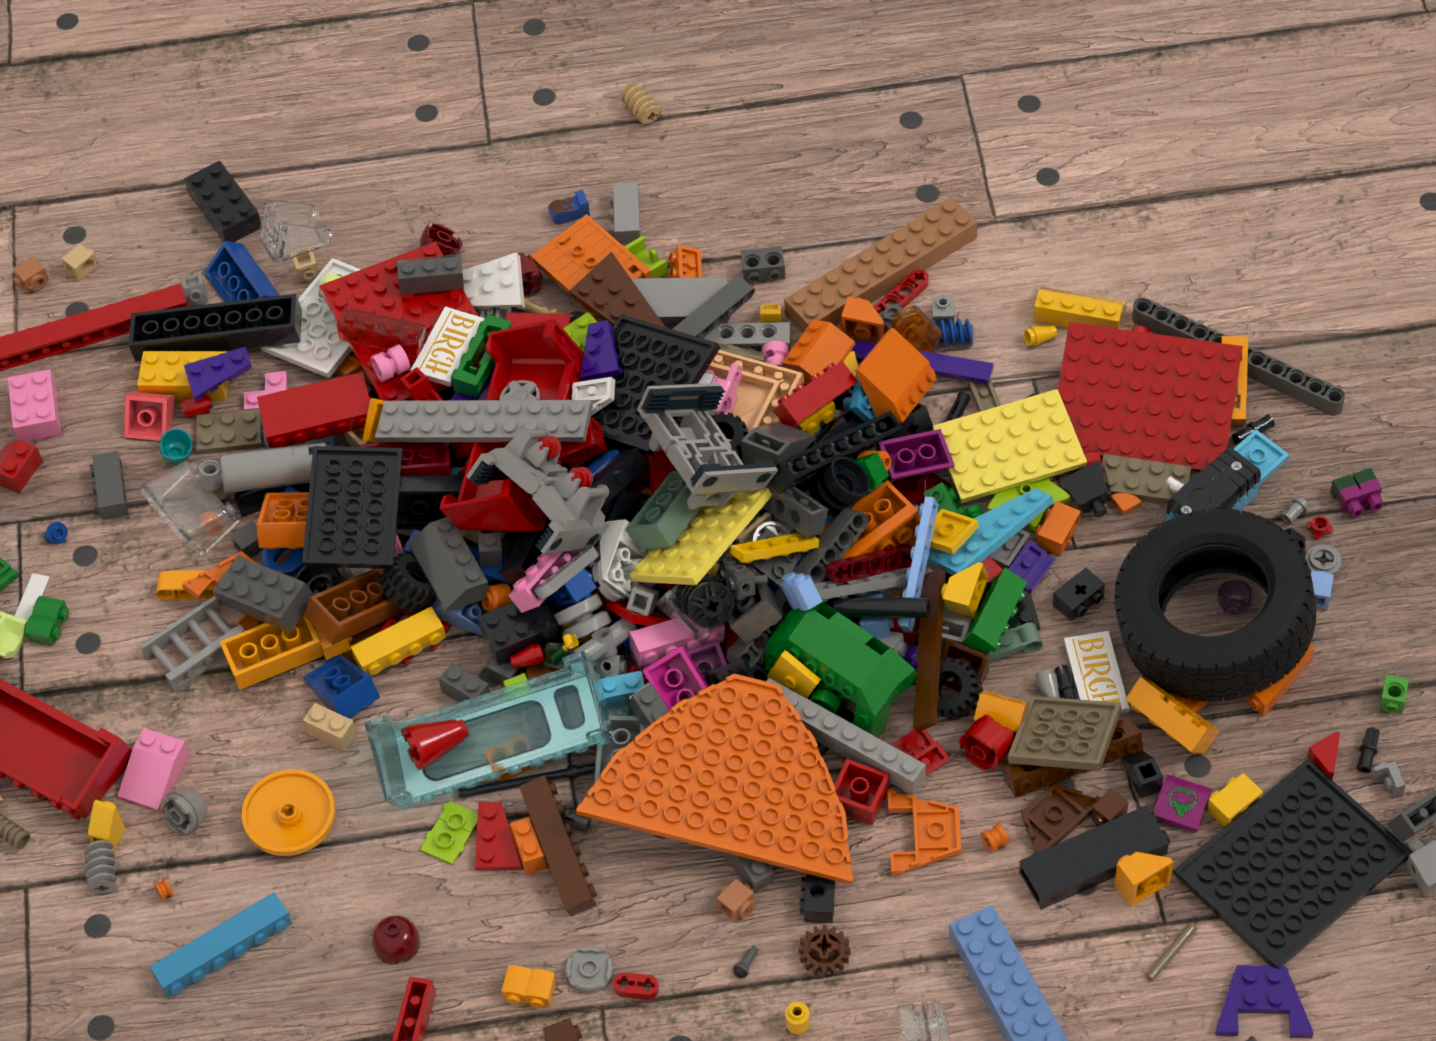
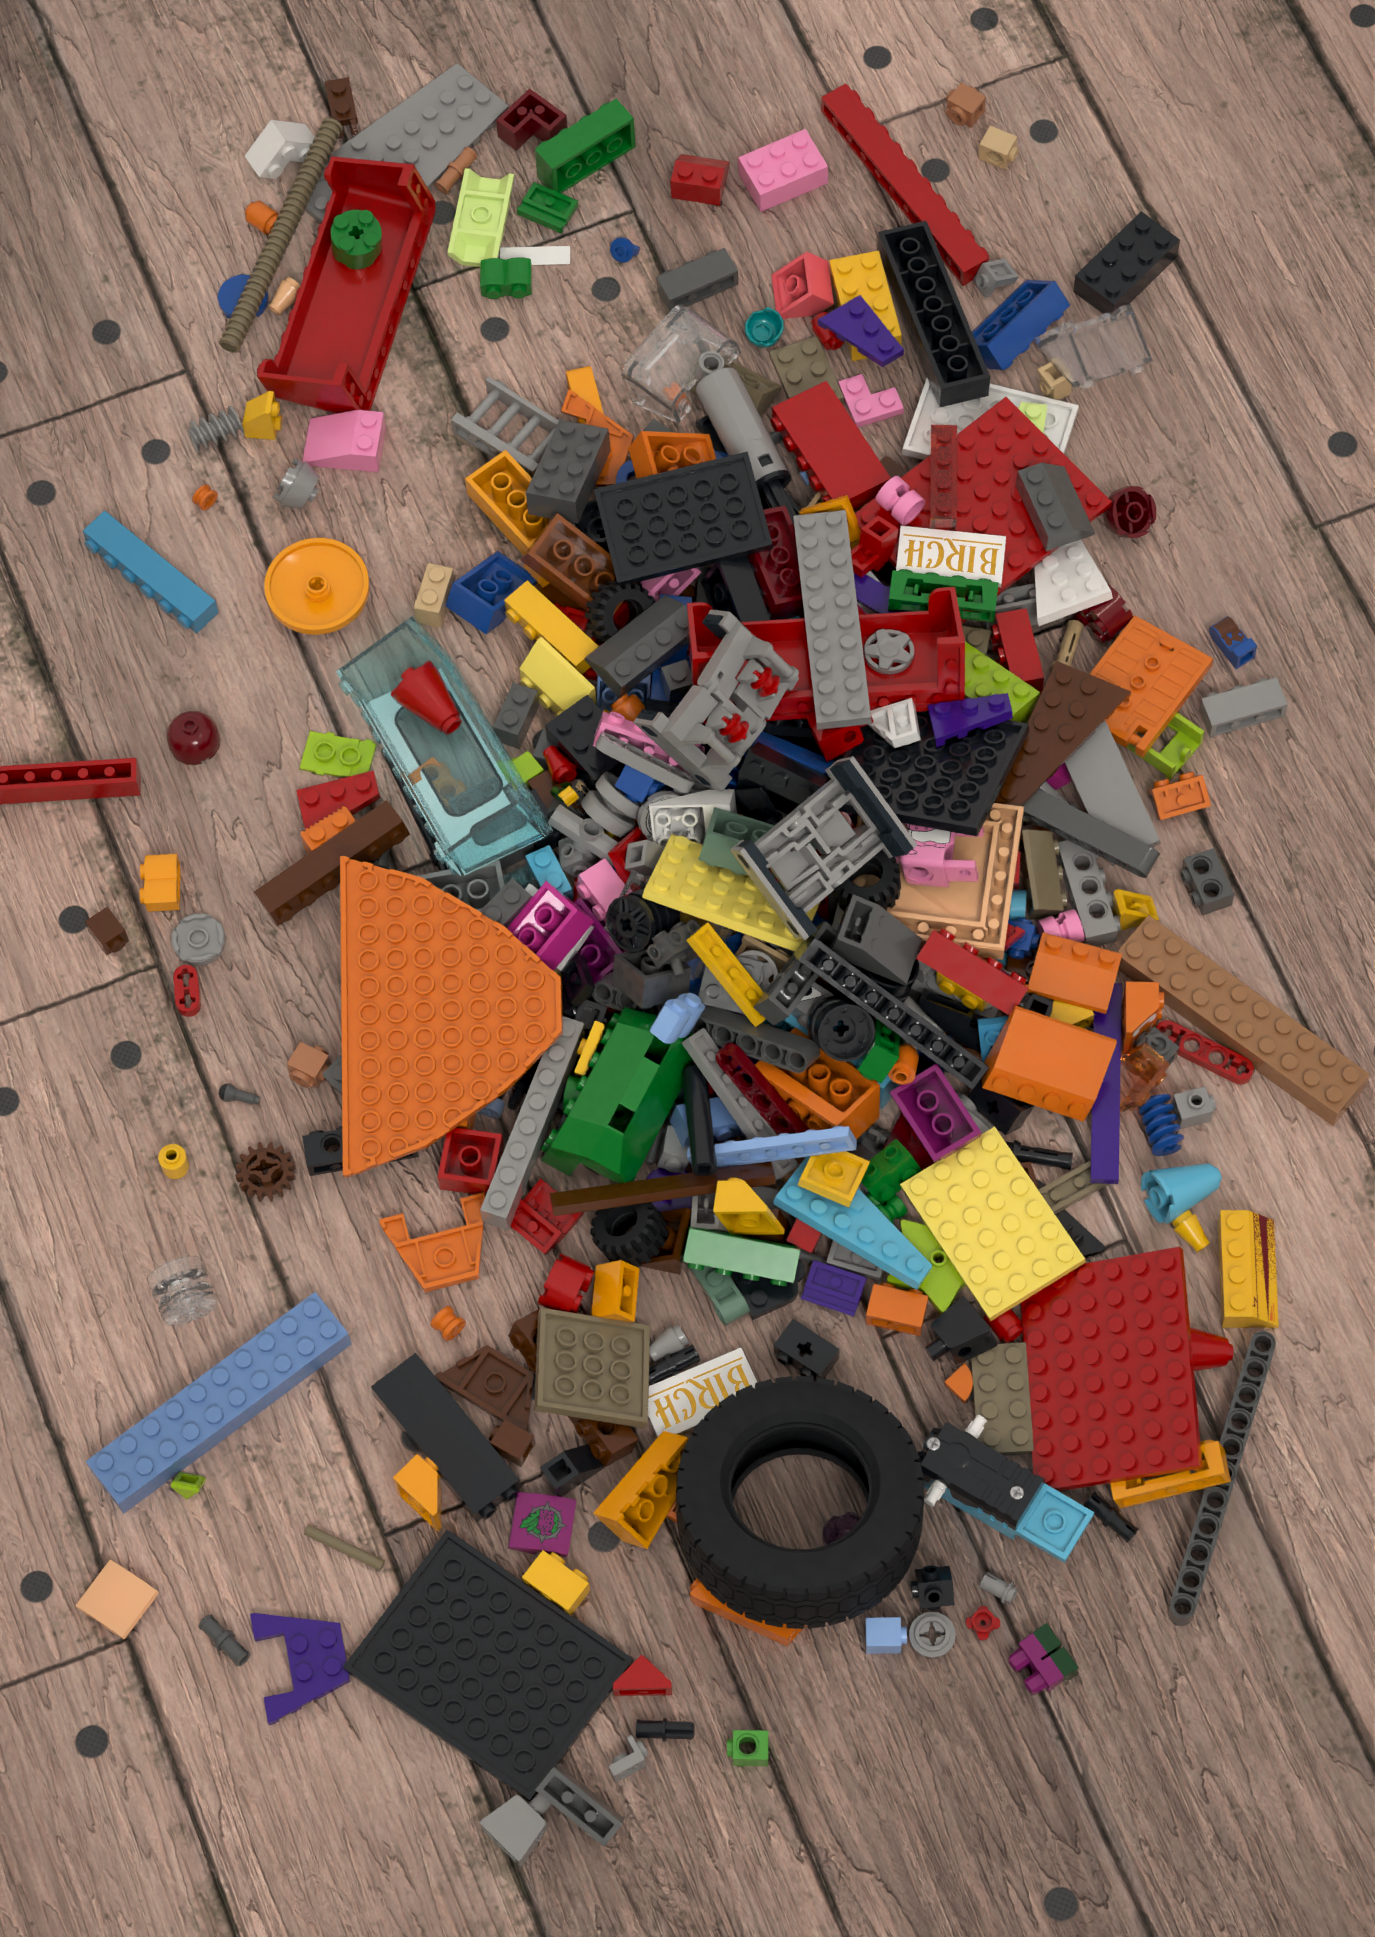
camera: 75 degrees right, 10 degrees up
(454, 642) = (554, 678): none -> light yellow slope
(1009, 334) = (1178, 1189): none -> medium azure cone

